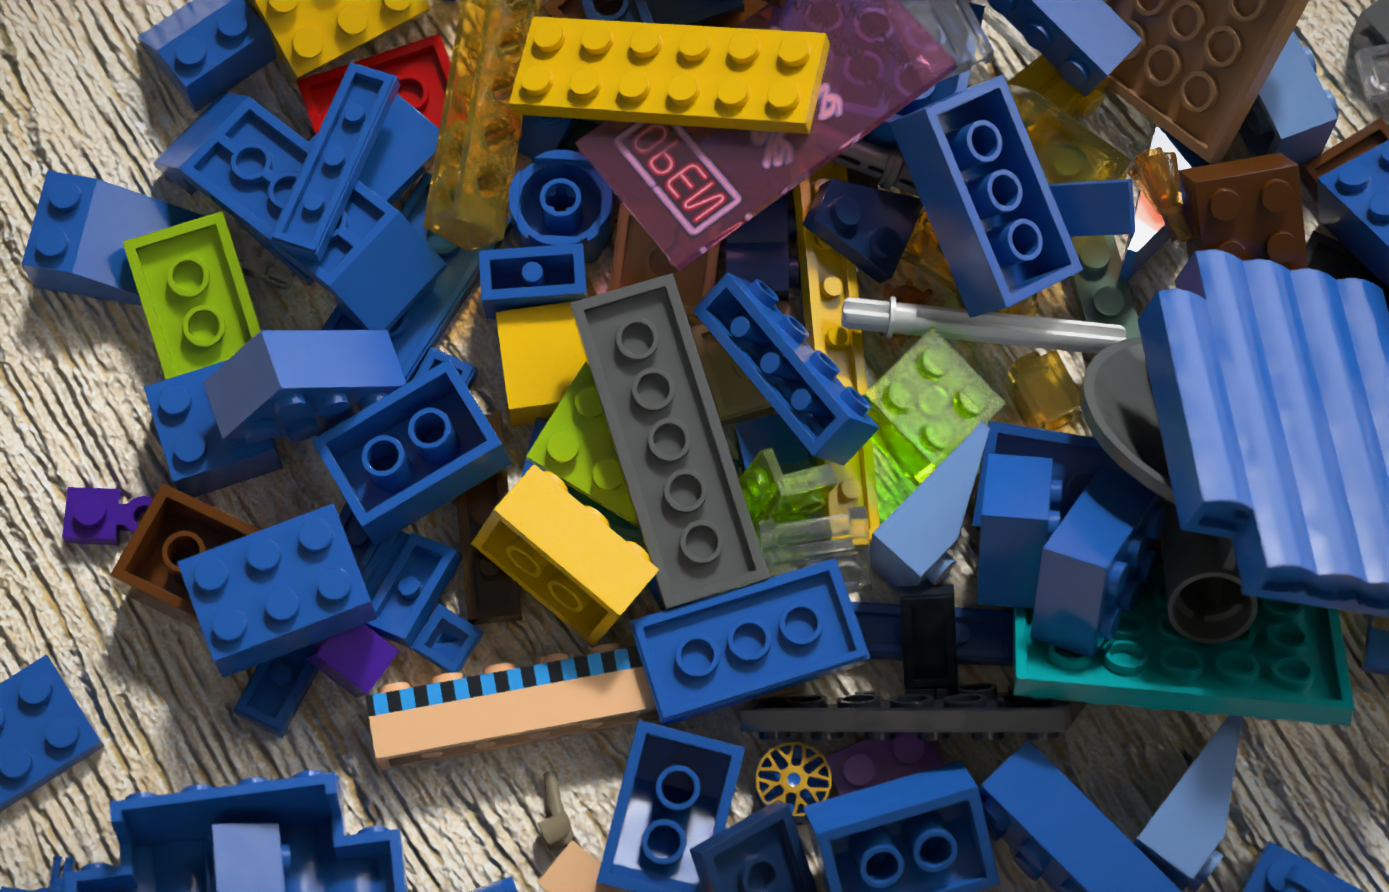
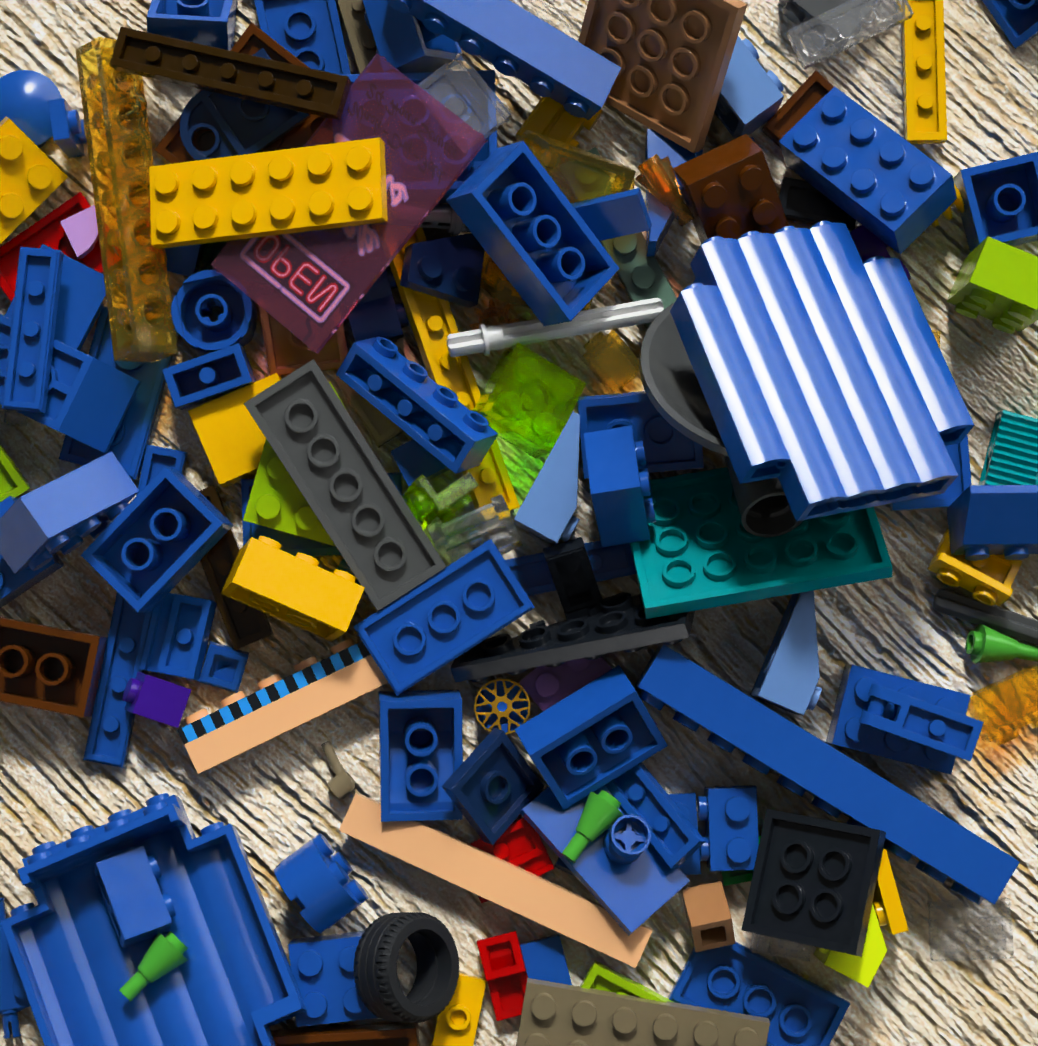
camera: 15 degrees left, 15 degrees up
(277, 590) = (90, 678): blue brick -> none
(428, 75) = (82, 231): none -> lavender tile
(1097, 562) = (682, 504): blue brick -> none

